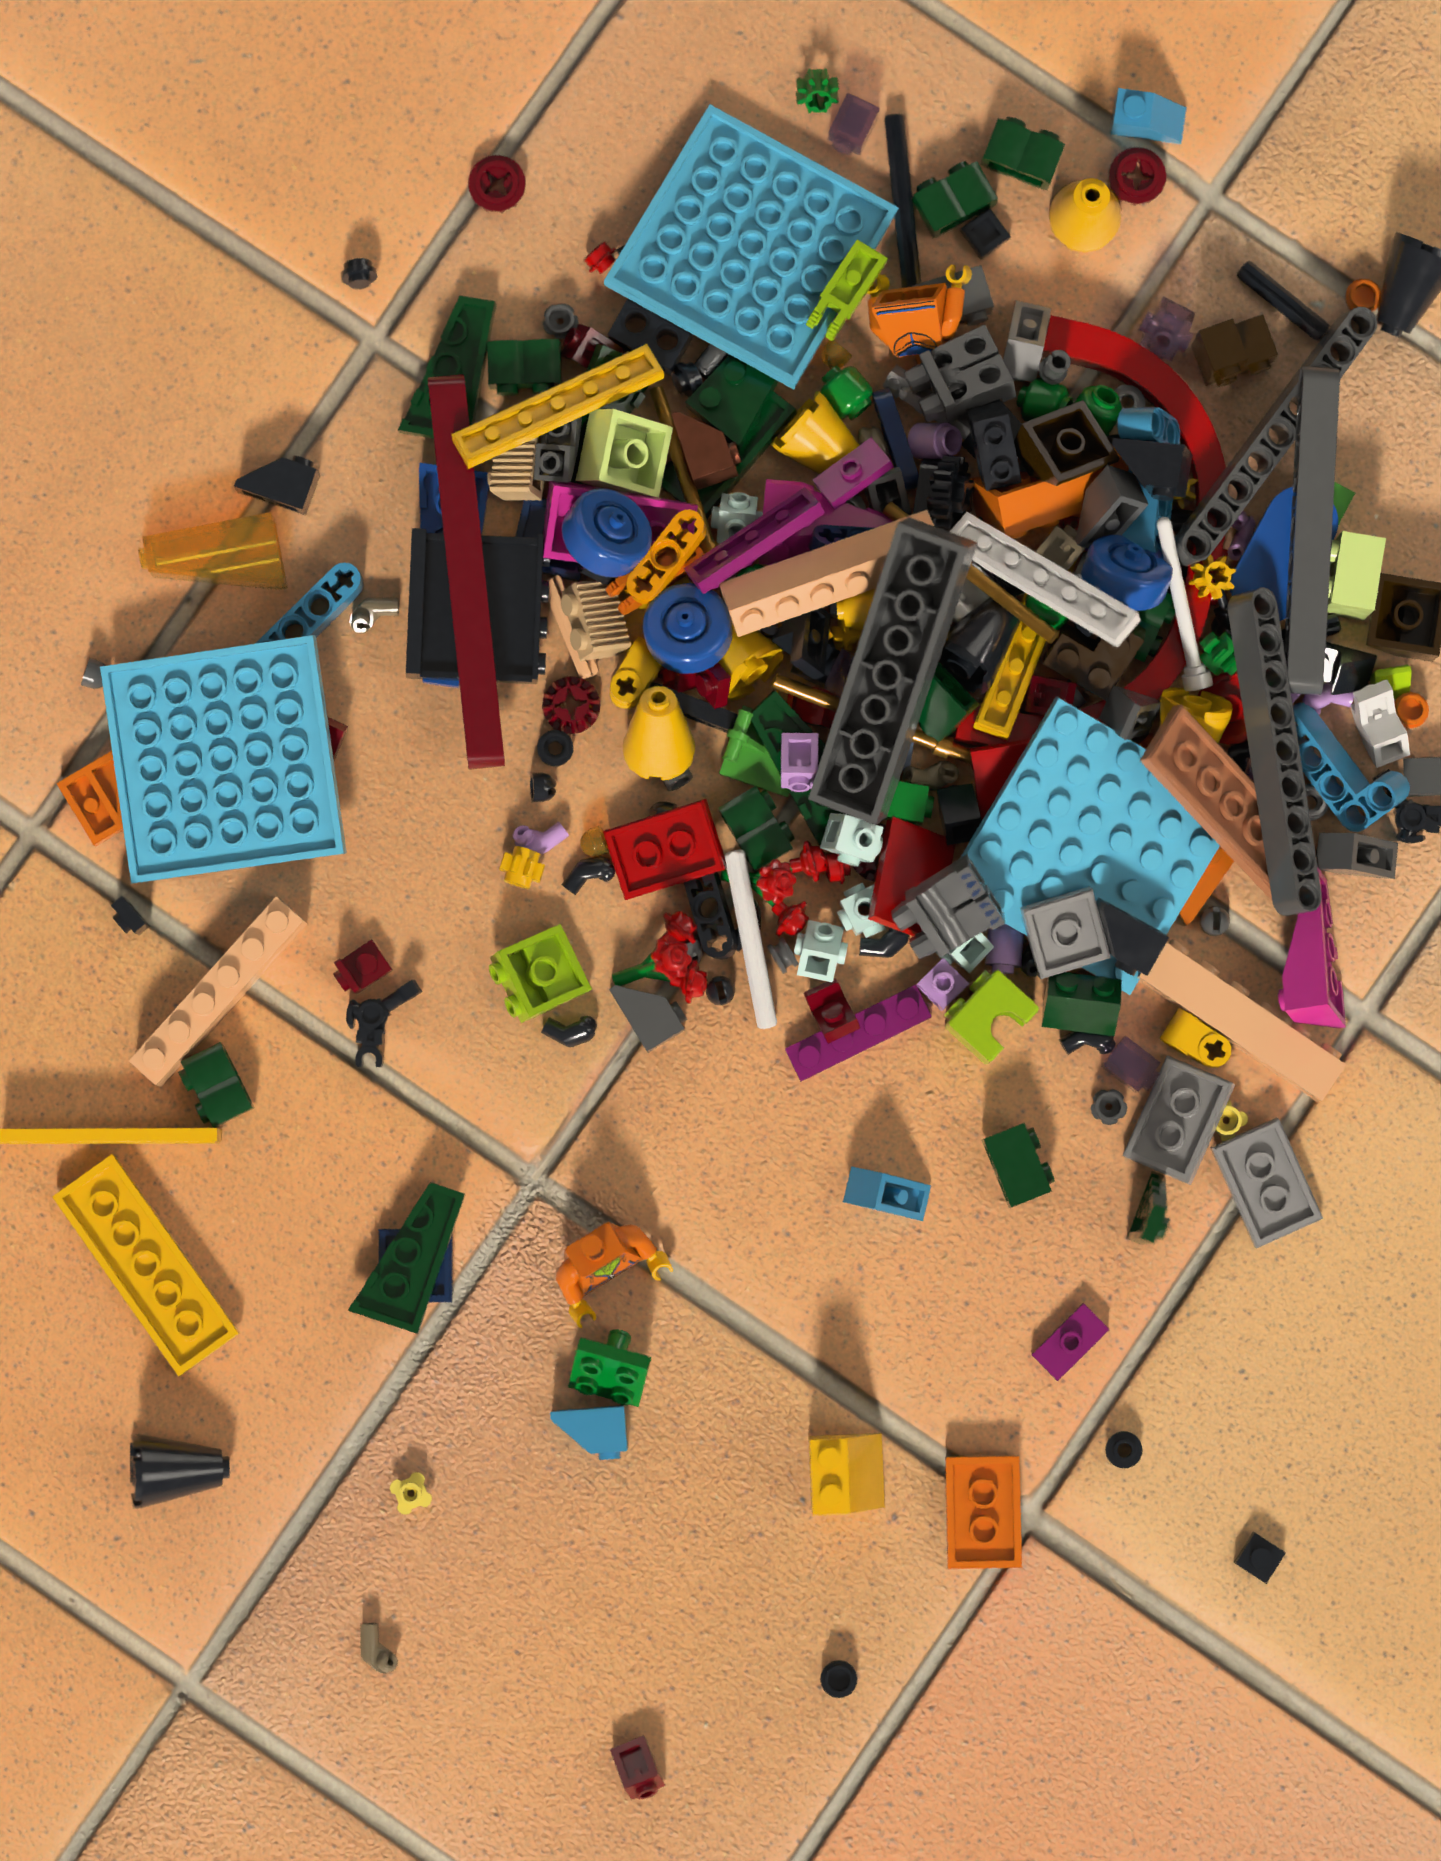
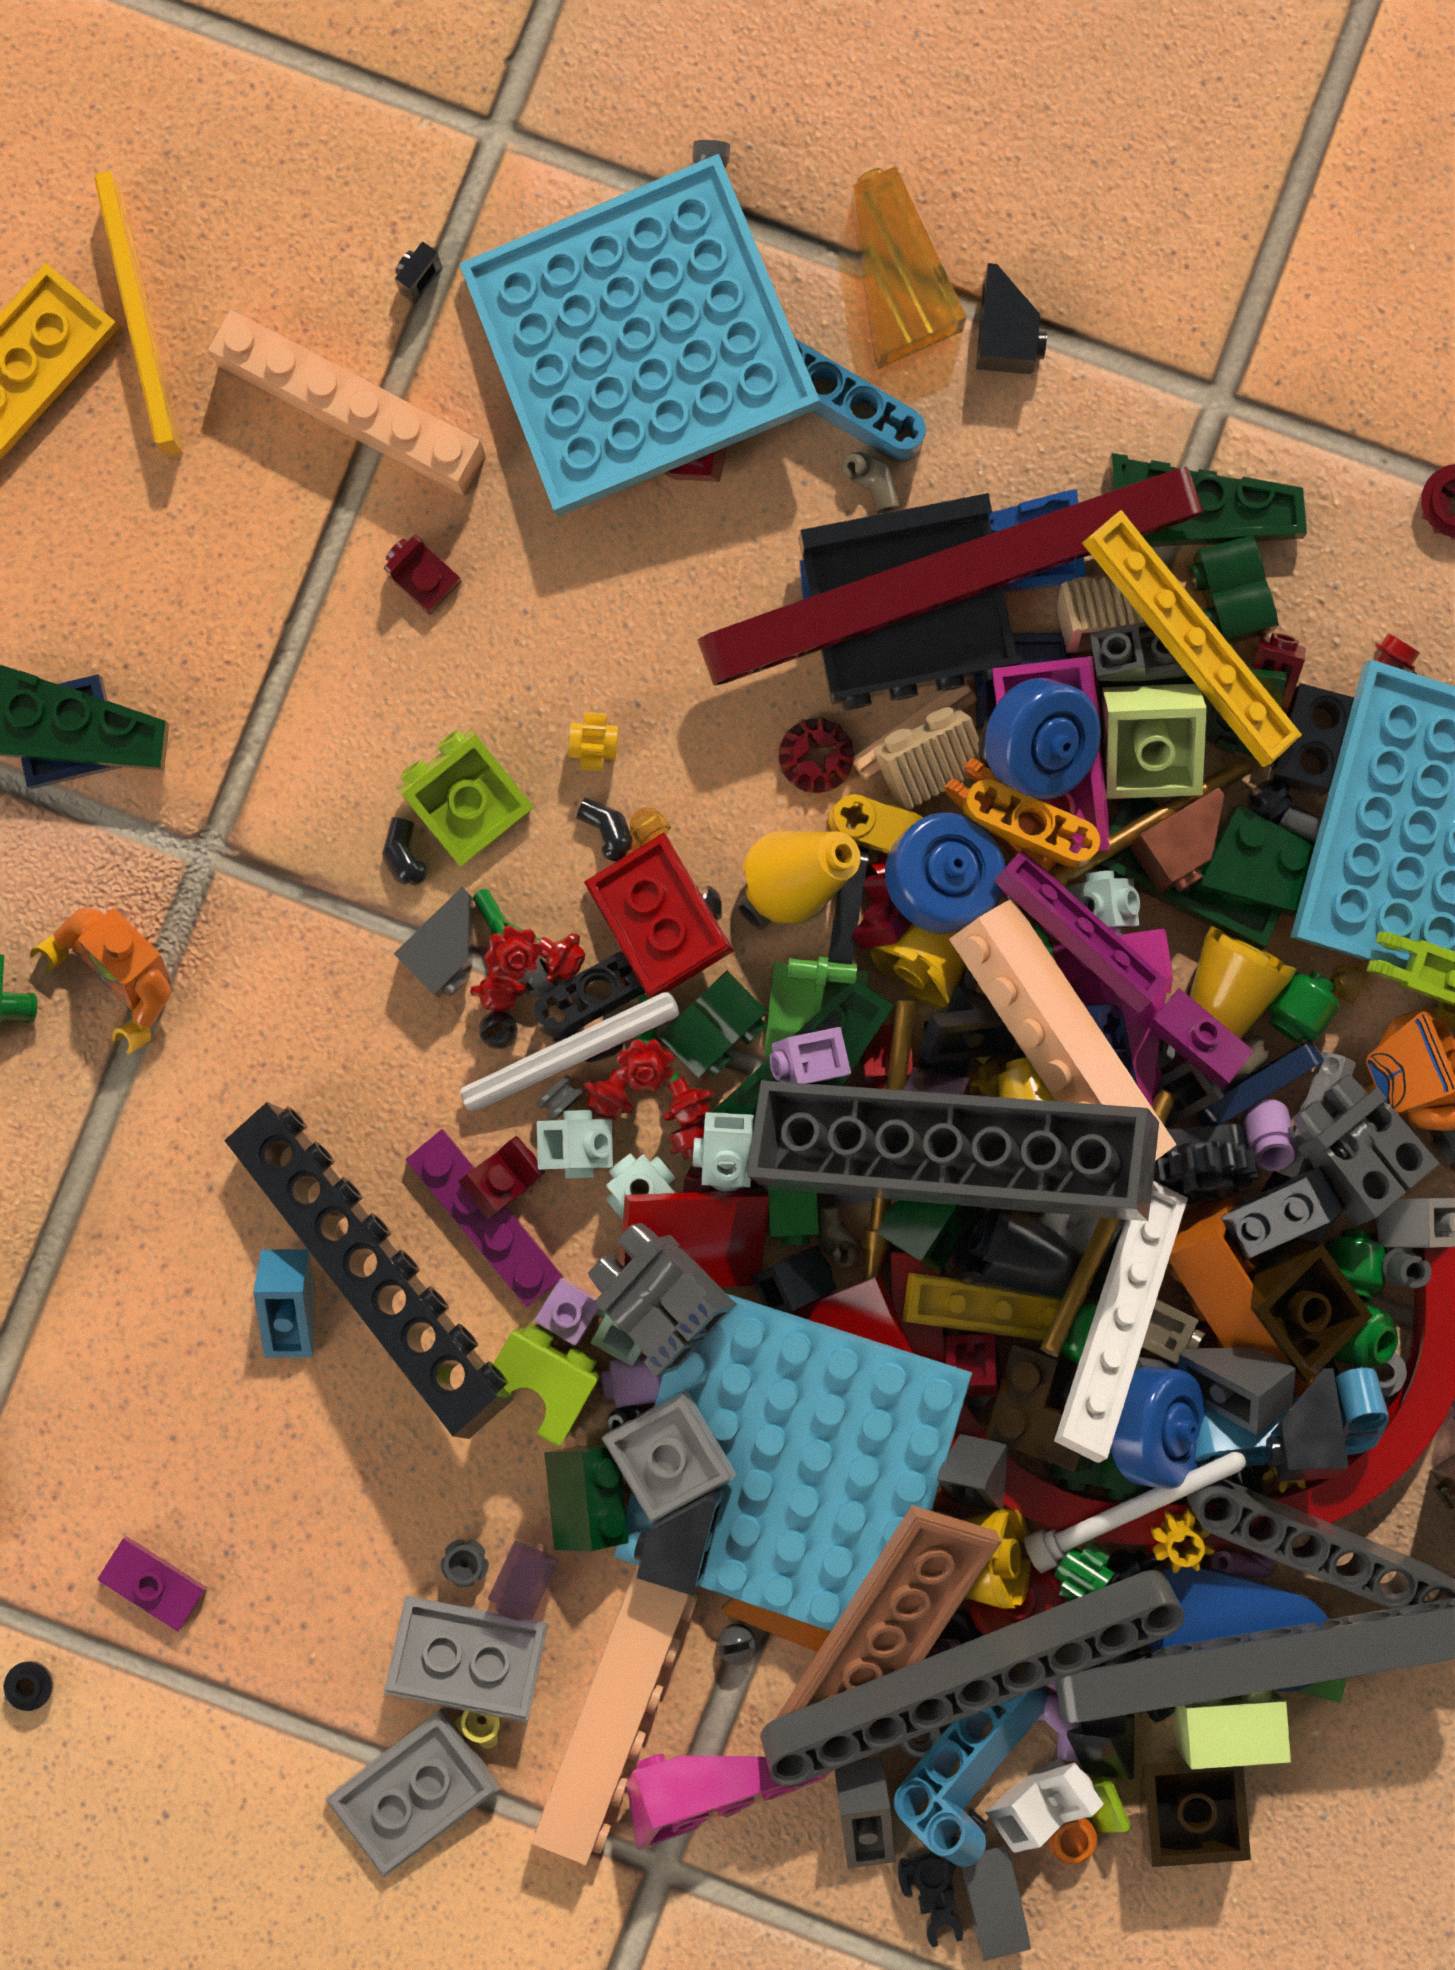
camera: 75 degrees right, 0 degrees up
(95, 798) = (552, 192): orange wing -> none
(216, 1085) = (231, 429): dark green brick -> none
(358, 273) = (1298, 356): black plate -> none
(372, 1017) = (362, 603): black piece -> none
(539, 841) = (633, 755): lavender arm -> none
(542, 787) = (702, 744): black hinge -> none
(549, 738) = (756, 733): black plate -> none
(555, 312) = (1303, 611): dark grey plate -> none
(766, 1186) = (259, 1148): none -> black brick
(885, 947) = (601, 1225): black arm -> none
(1018, 1165) = (358, 1463): dark green brick -> none
(1074, 1040) = (538, 1498): black arm -> none
(1150, 1216) = (323, 1654): dark green wing -> none
(1189, 1037) = (577, 1652): yellow piece -> none

